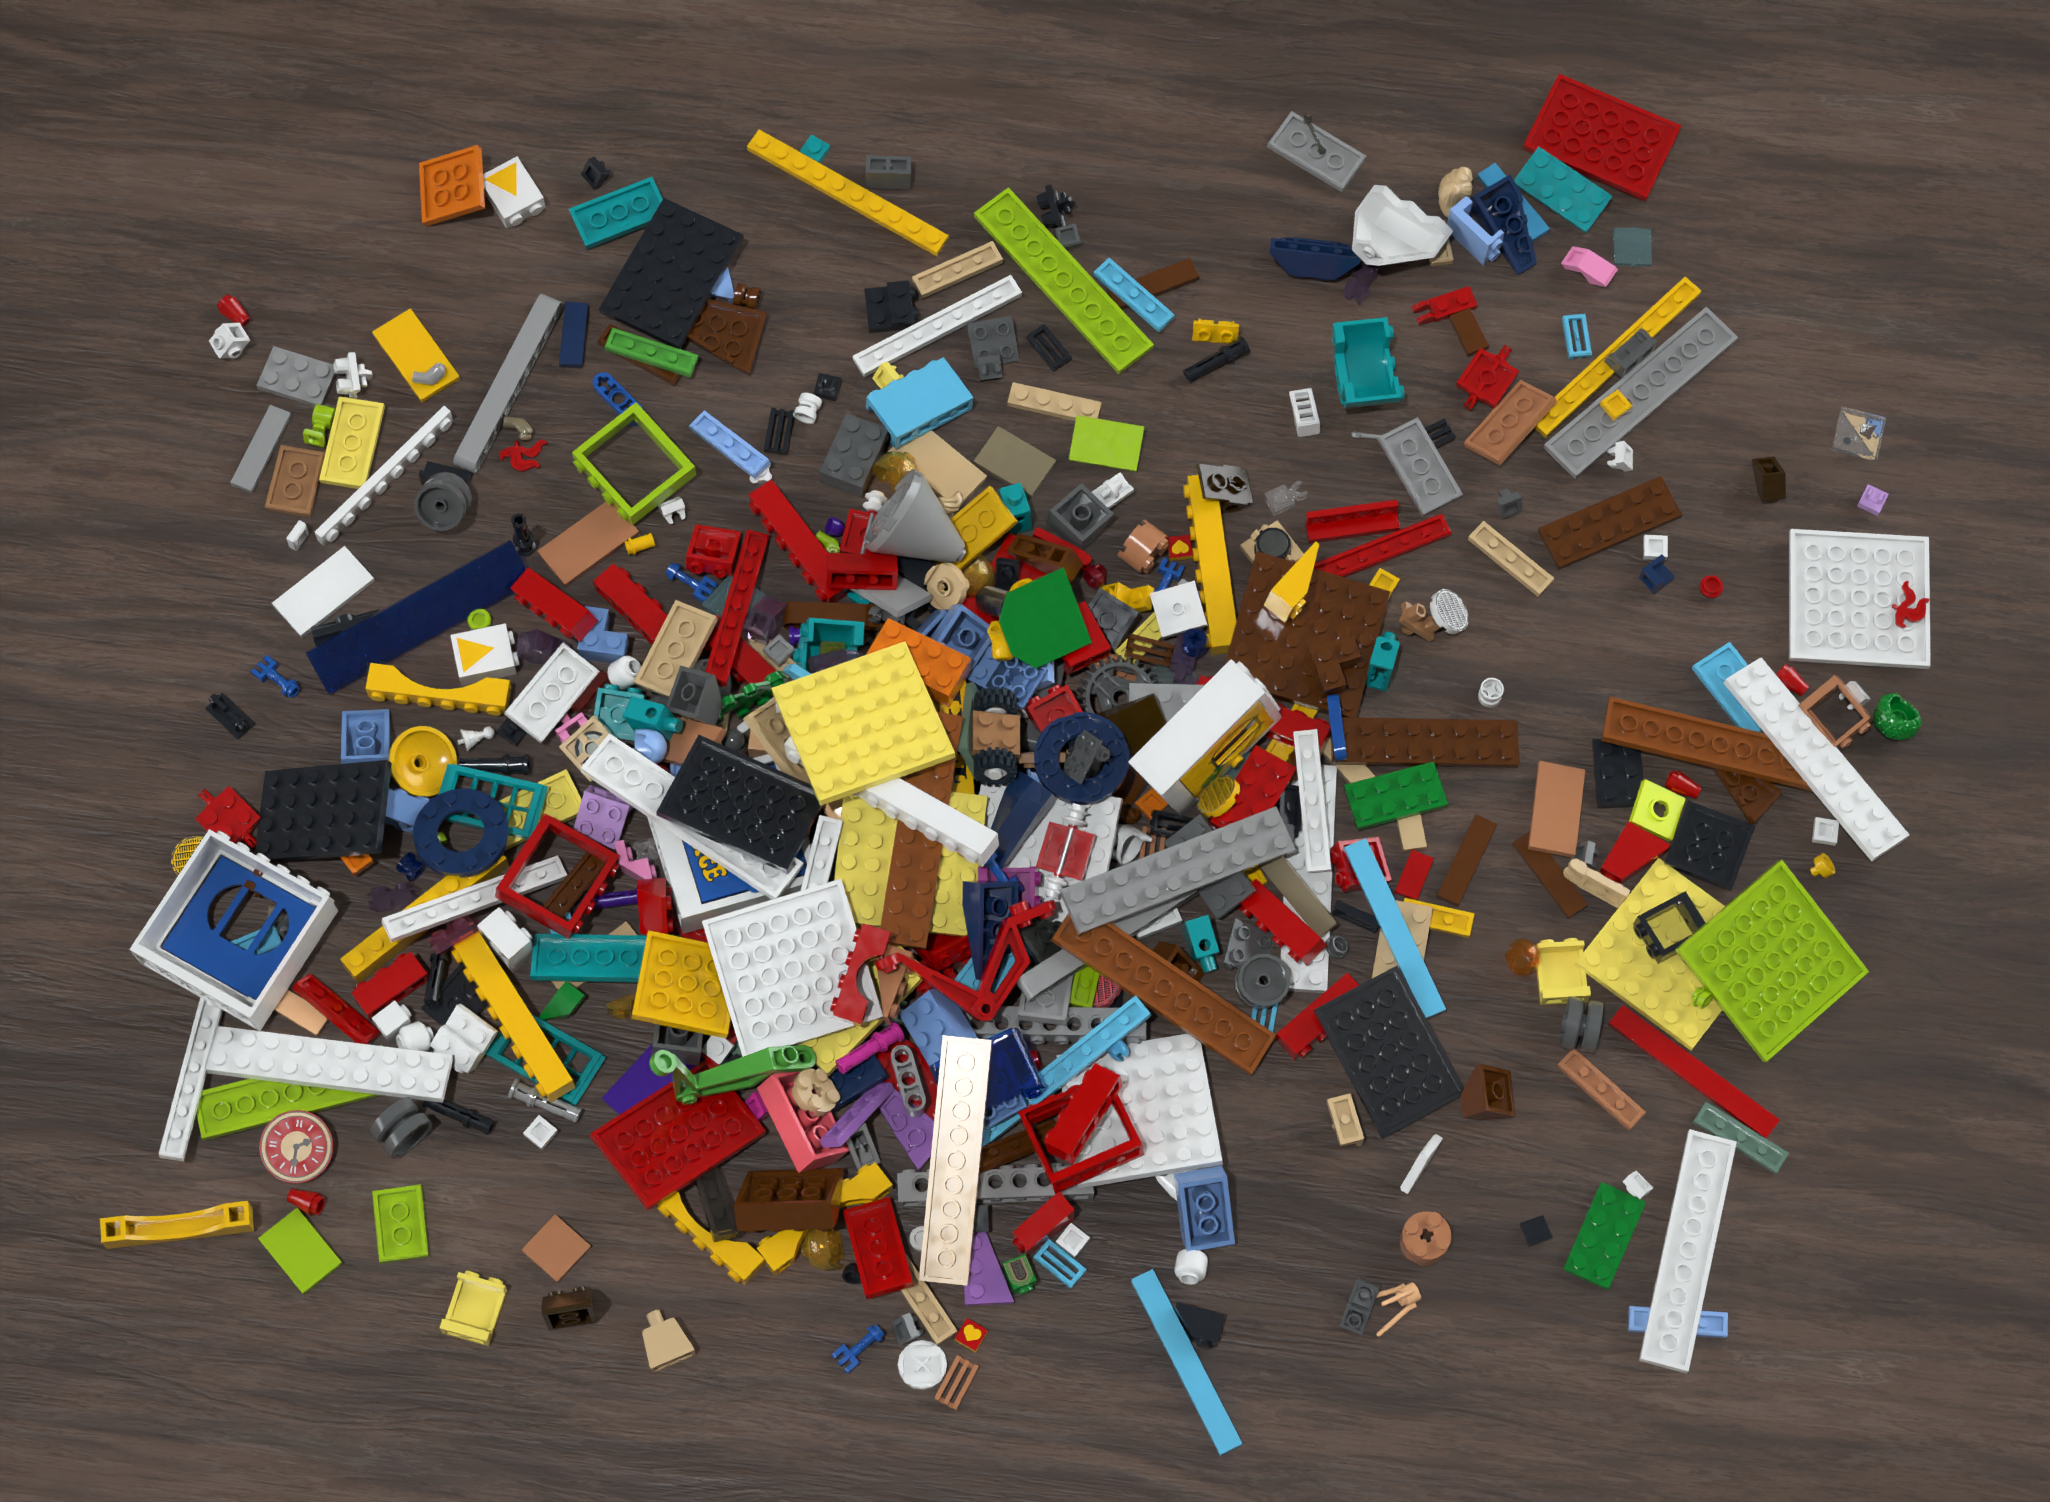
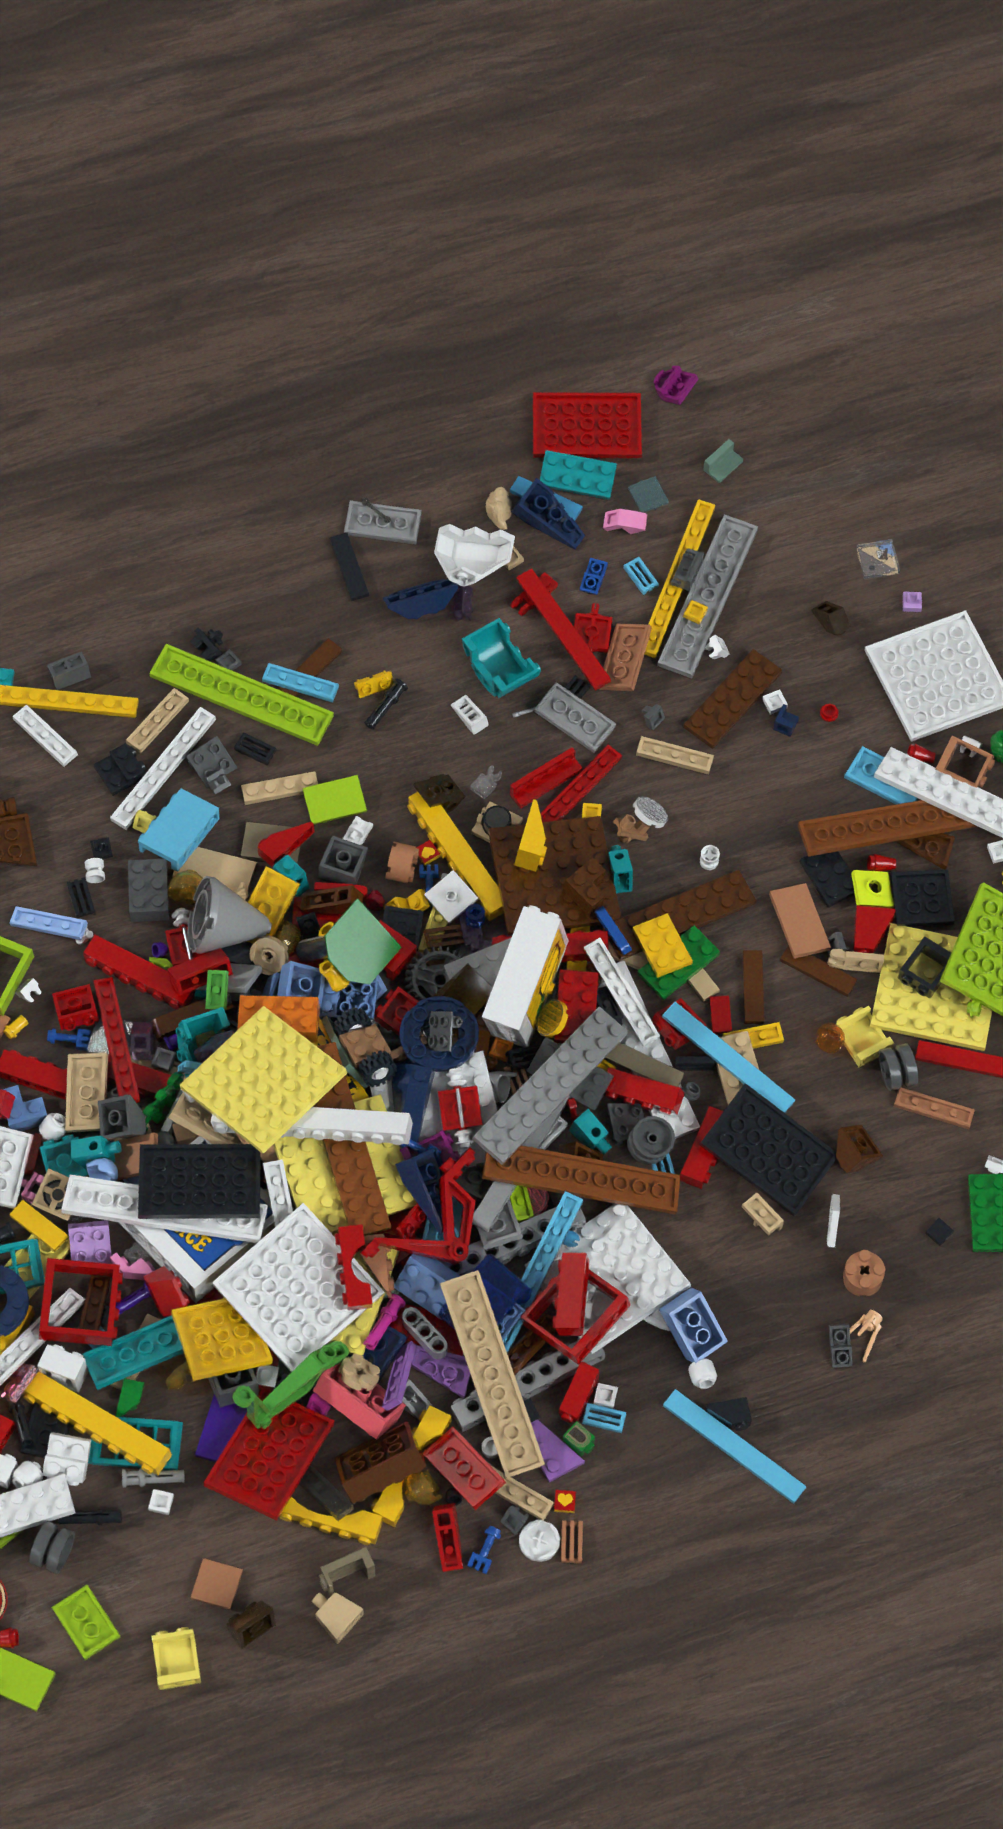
camera: 25 degrees left, 5 degrees down
(556, 773) = (38, 1225): none -> yellow tile
(697, 1295) = (345, 1566): none -> dark tan panel
(825, 1313) = (448, 1536): none -> red slope
(827, 234) = (45, 735): none -> white plate
(868, 600) = (216, 989): none -> bright green plate
(1026, 467) = (284, 842): none -> red slope
(1195, 907) = (571, 1107): none -> red tile
(1254, 186) = (349, 566): none -> black tile
(1384, 768) = (662, 945): none -> yellow plate
(1456, 361) = (563, 629): none -> red tile
(1468, 331) = (565, 604): reddish brown tile -> none
(1471, 235) = (530, 534): light blue panel -> none
(1522, 315) = (594, 576): none -> blue slope
(1725, 131) = (674, 384): none -> magenta slope
(1736, 244) = (722, 462): none -> sand green panel
(1912, 615) = (975, 671): red piece -> none

